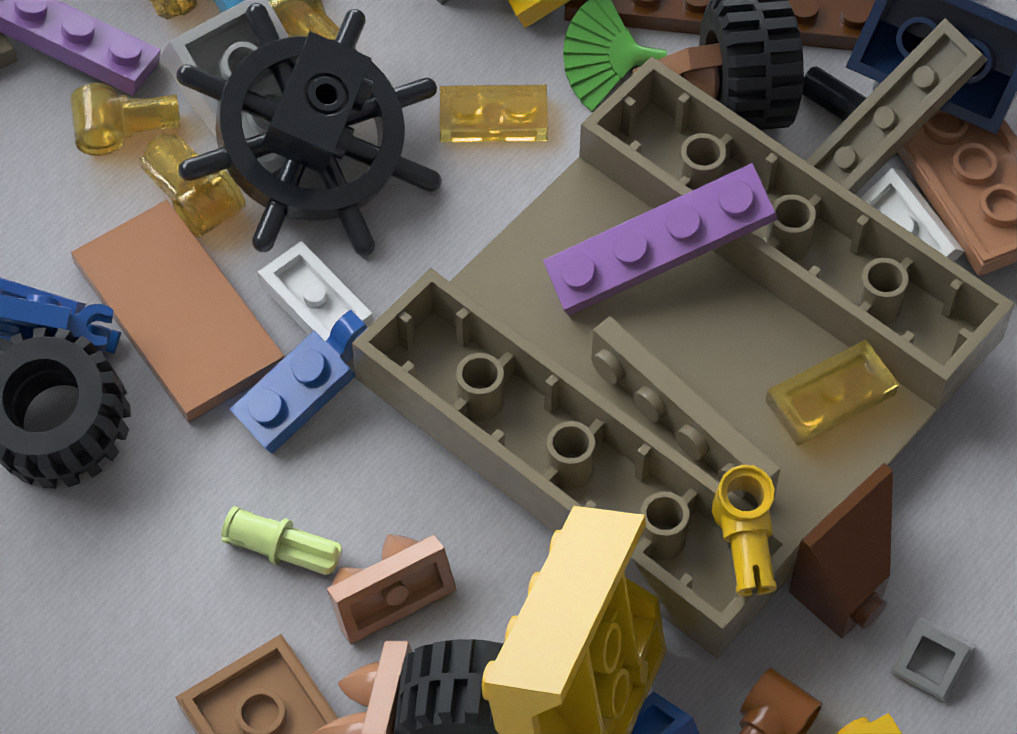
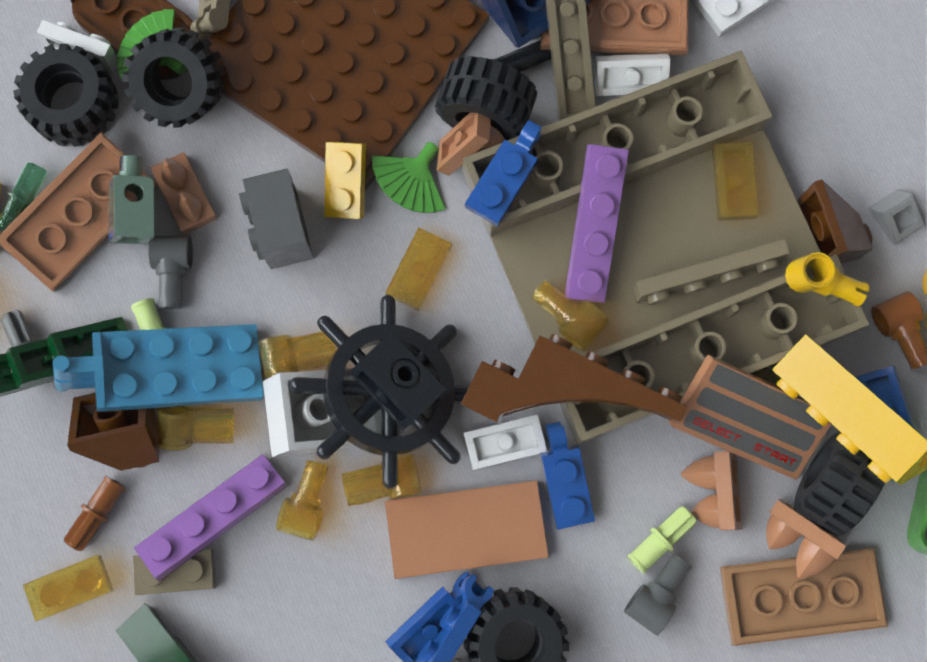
camera: 65 degrees left, 20 degrees up
(185, 565) = (653, 603): none -> dark grey pin
(418, 263) = (562, 376): none -> reddish brown arch
(495, 520) = (750, 418): none -> dark grey tile
(521, 286) = (577, 321): none -> clear yellow pin
(657, 104) = (505, 176): none -> blue plate

